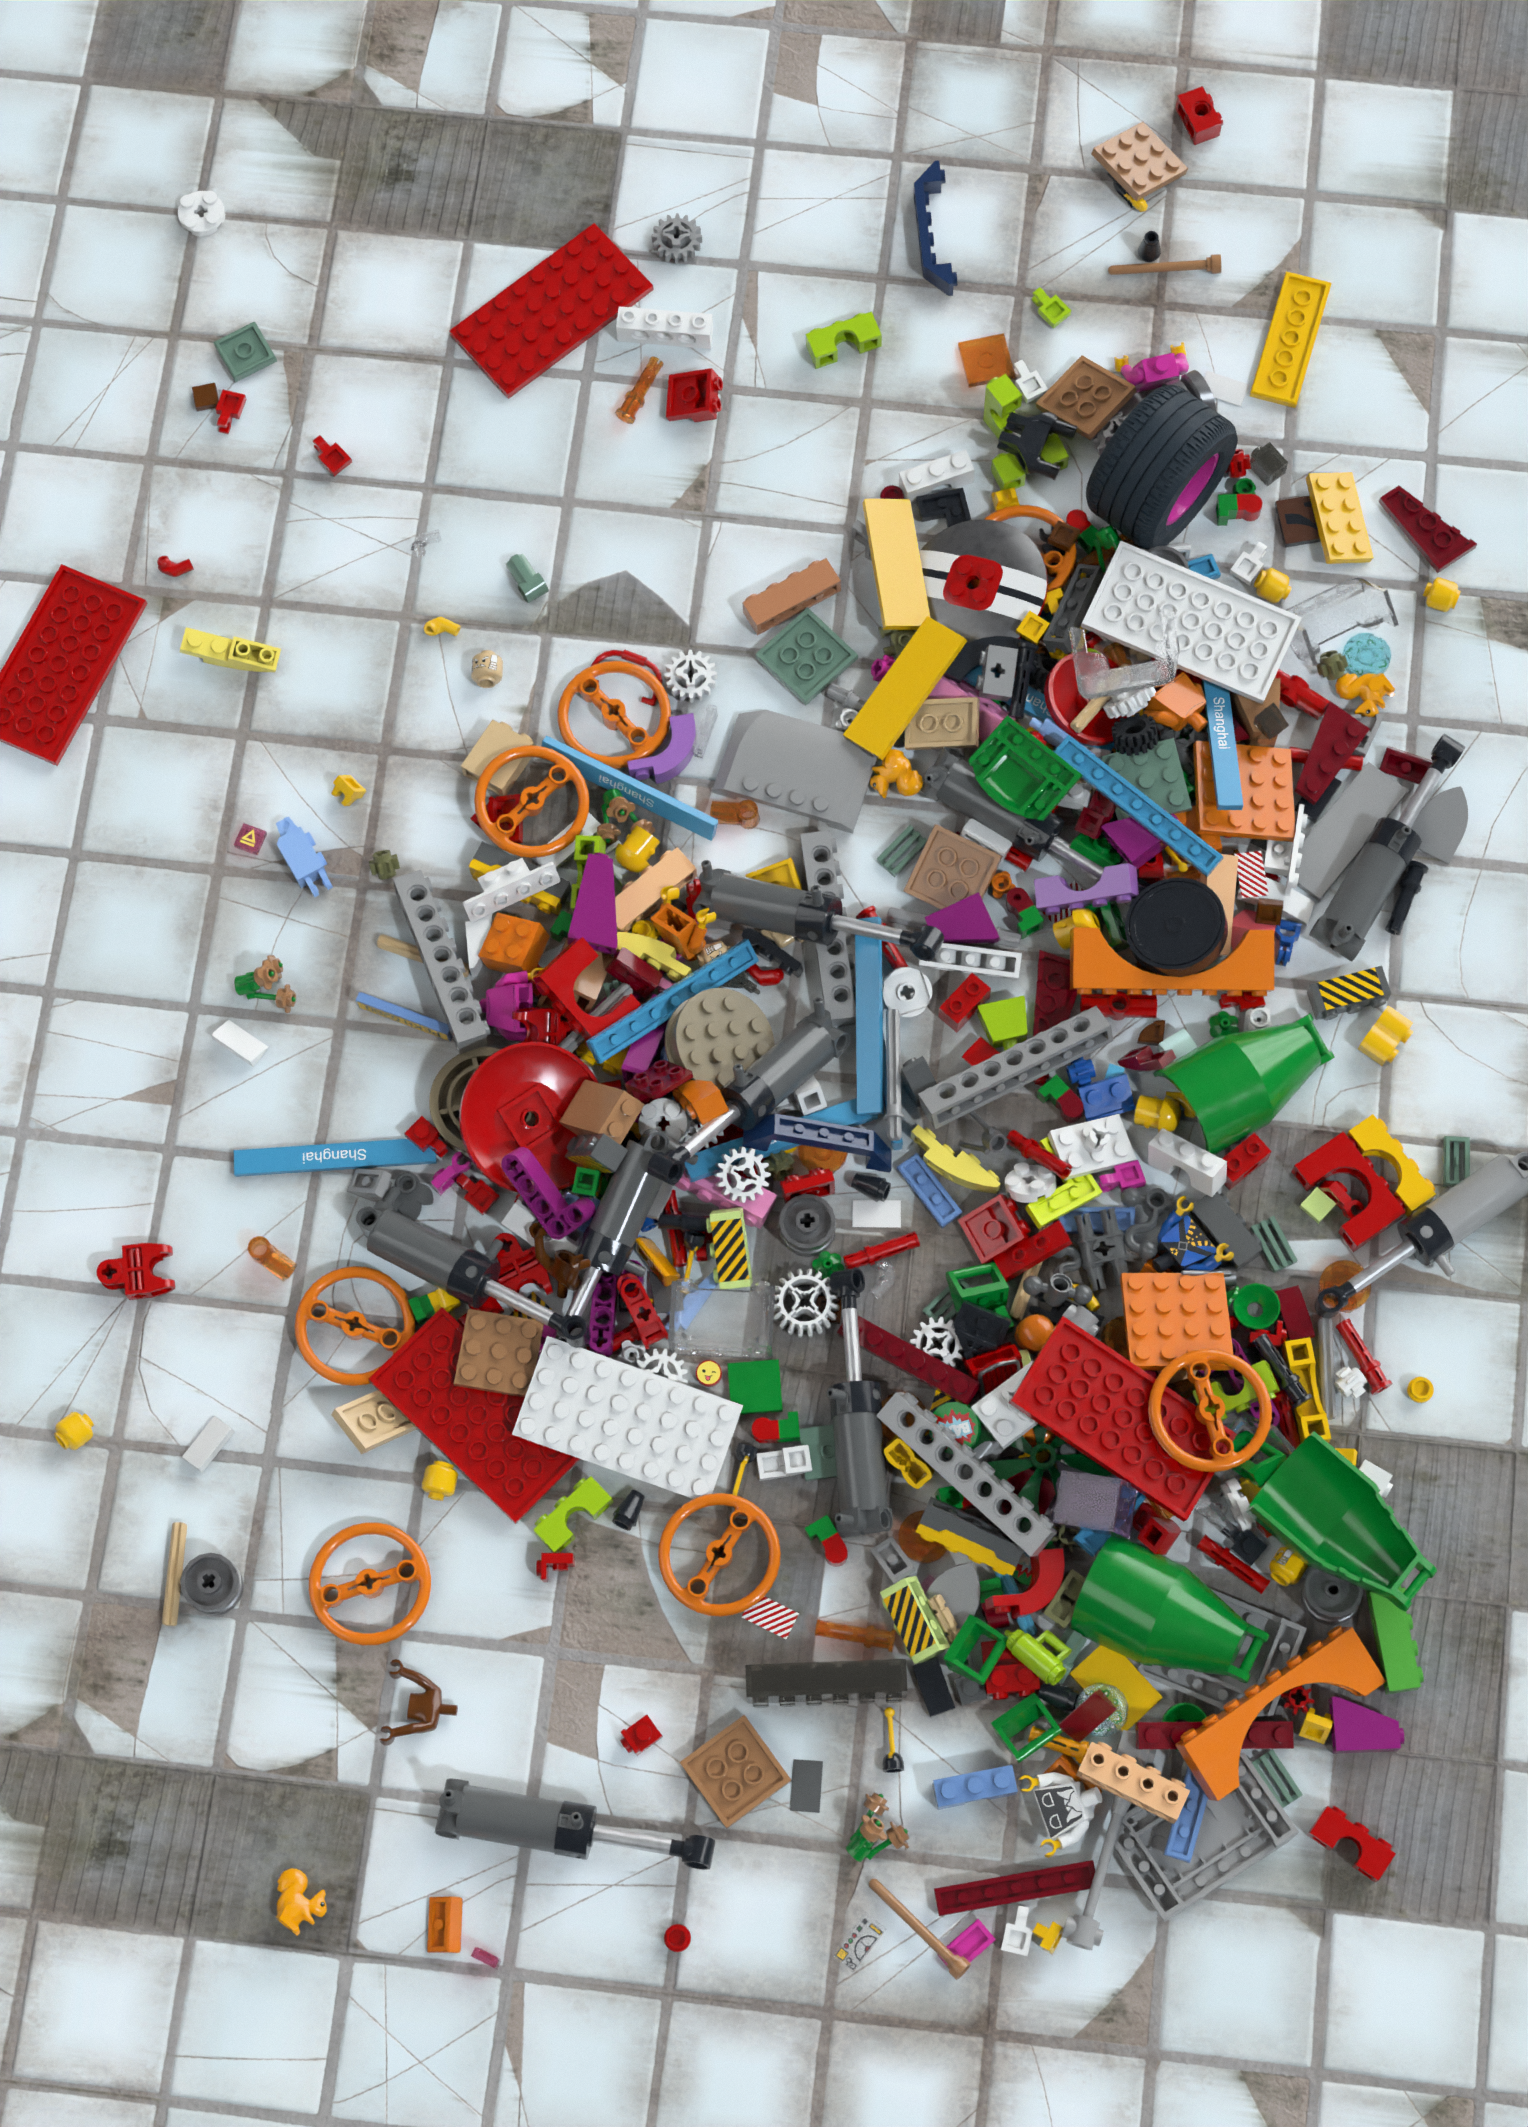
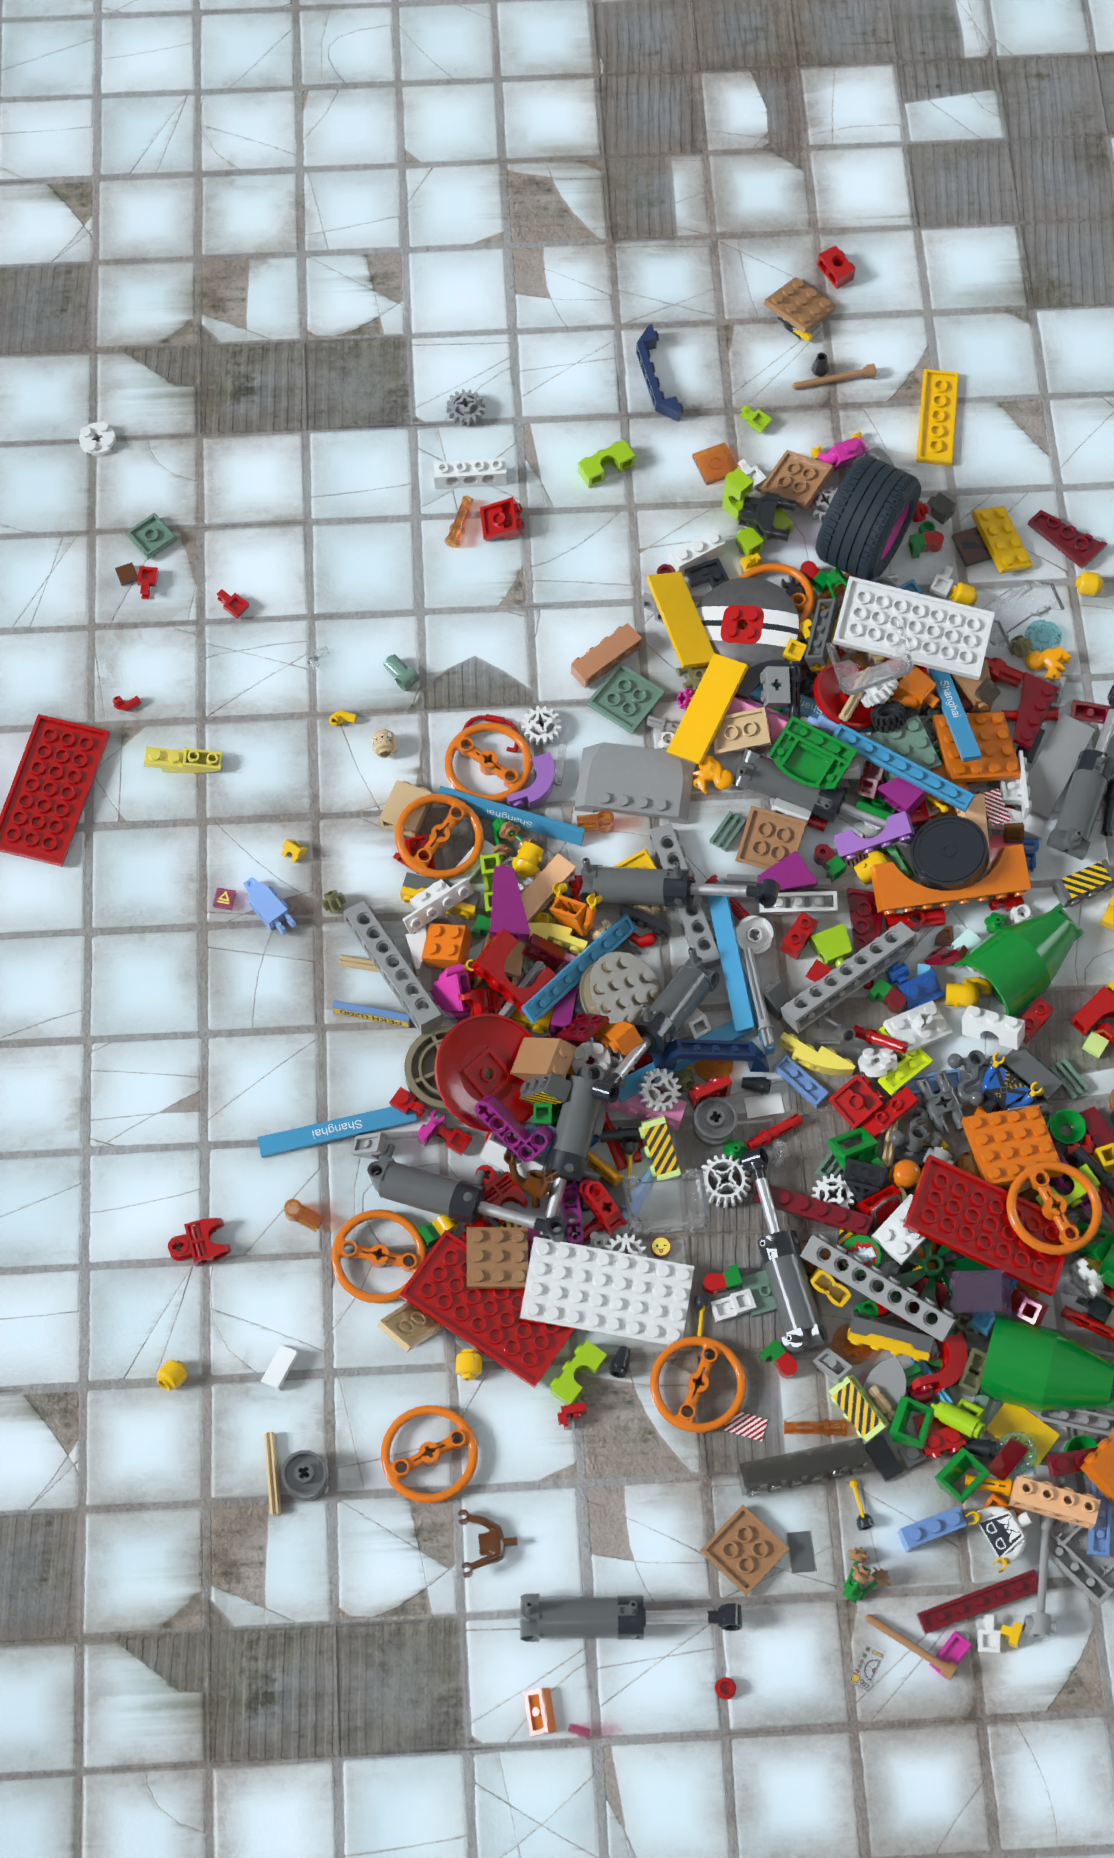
camera: 15 degrees left, 5 degrees down
(240, 1042) = (246, 1054): white slope -> none
(265, 977) = (258, 999): medium nougat plant -> none
(293, 1905) = (417, 1717): light orange animal -> none
(411, 1200) = (403, 1152): dark grey plate -> none
(551, 310) = (379, 473): red plate -> none
(640, 1736) = (664, 1535): red bracket -> none
(756, 1386) = (699, 1250): green tile -> none
(1003, 877) = (812, 844): orange plate -> none
(1063, 536) = (802, 581): reddish brown tile -> none
(1125, 1176) = (946, 1045): dark pink plate -> none

